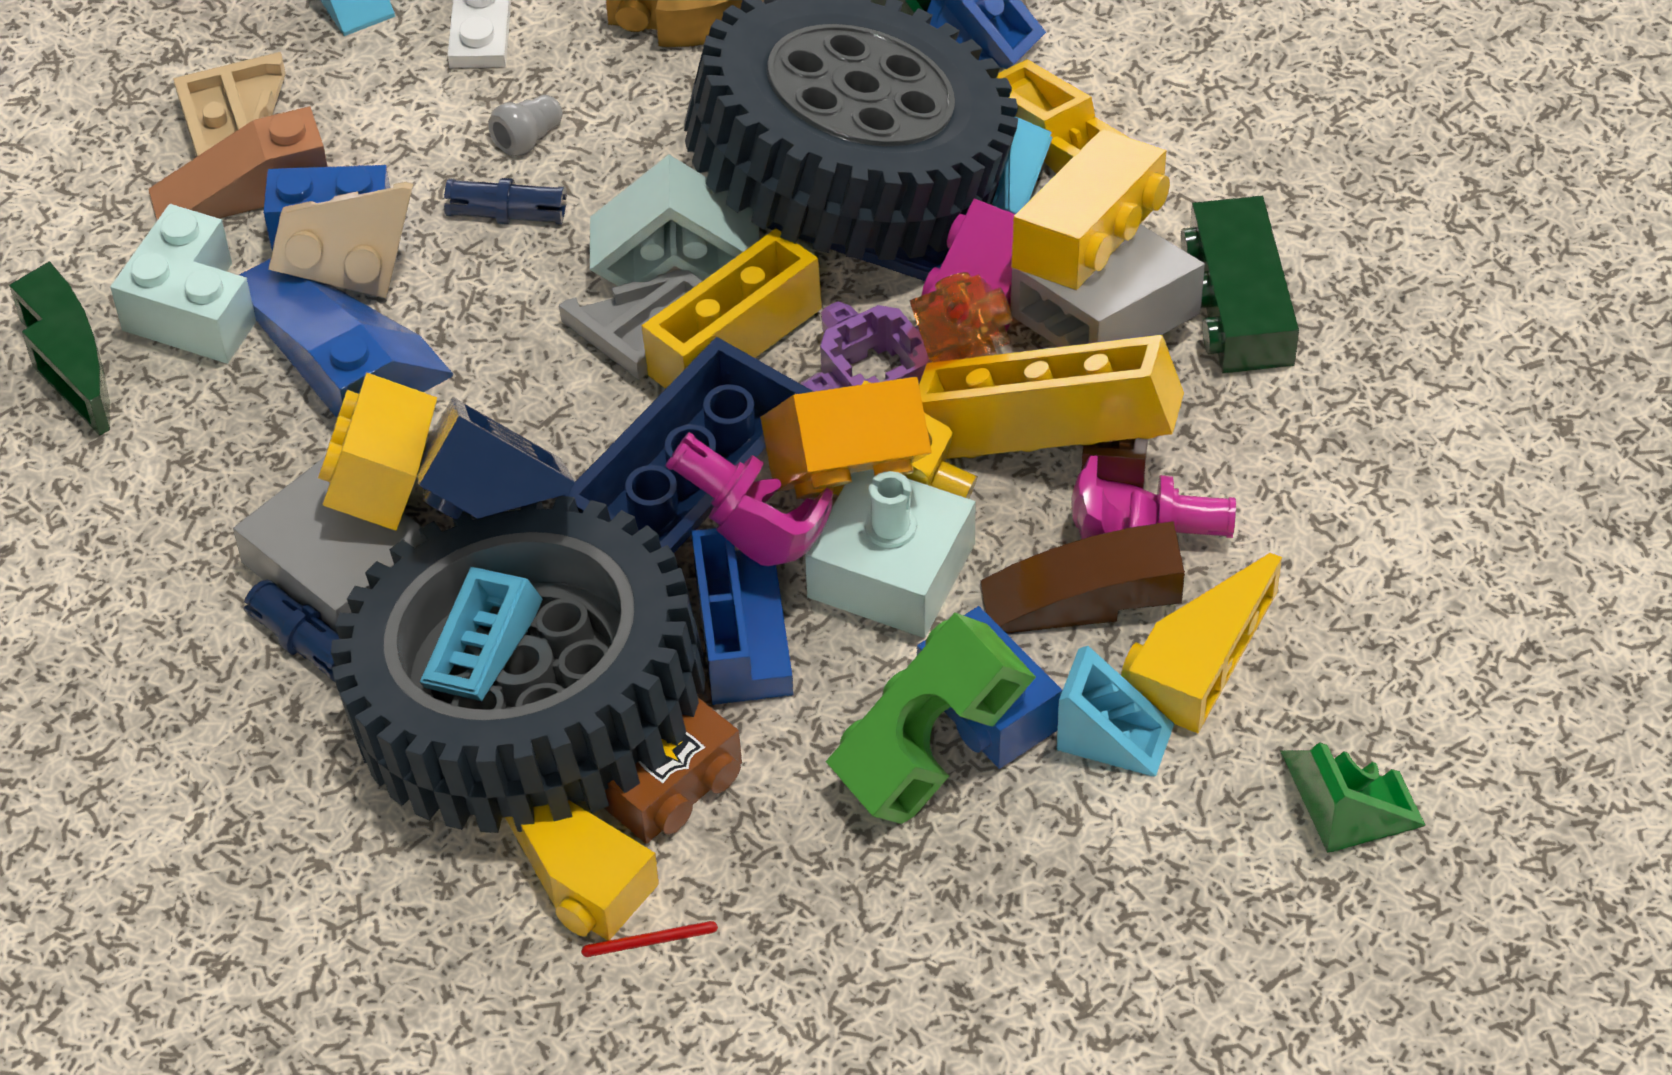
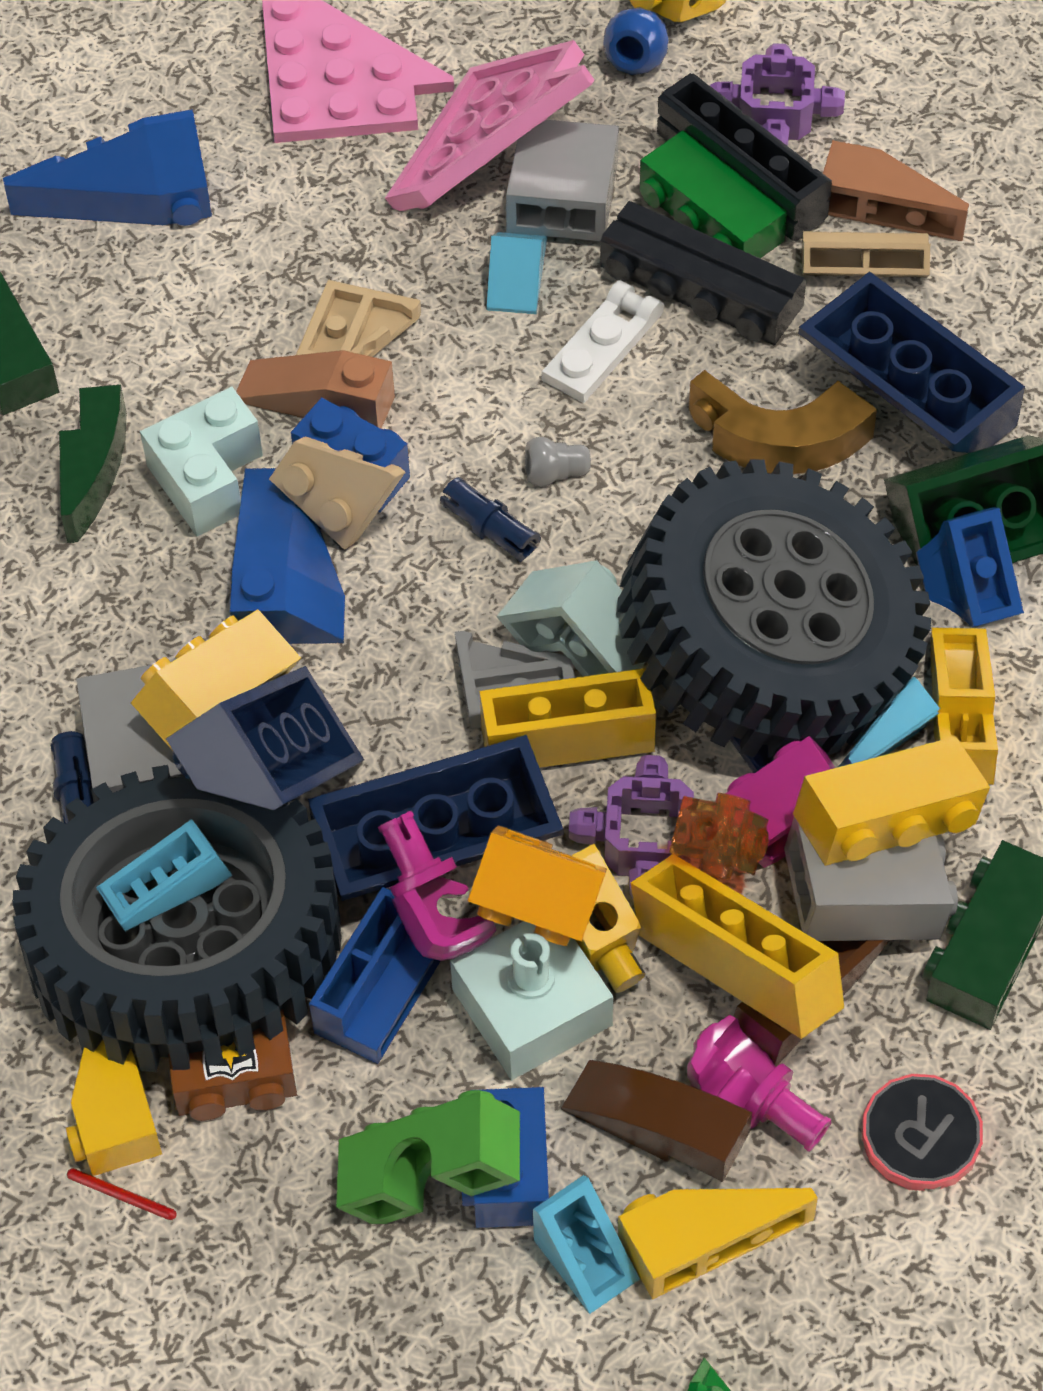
camera: 35 degrees right, 5 degrees up
(1309, 471) = (922, 1132): none -> black tile

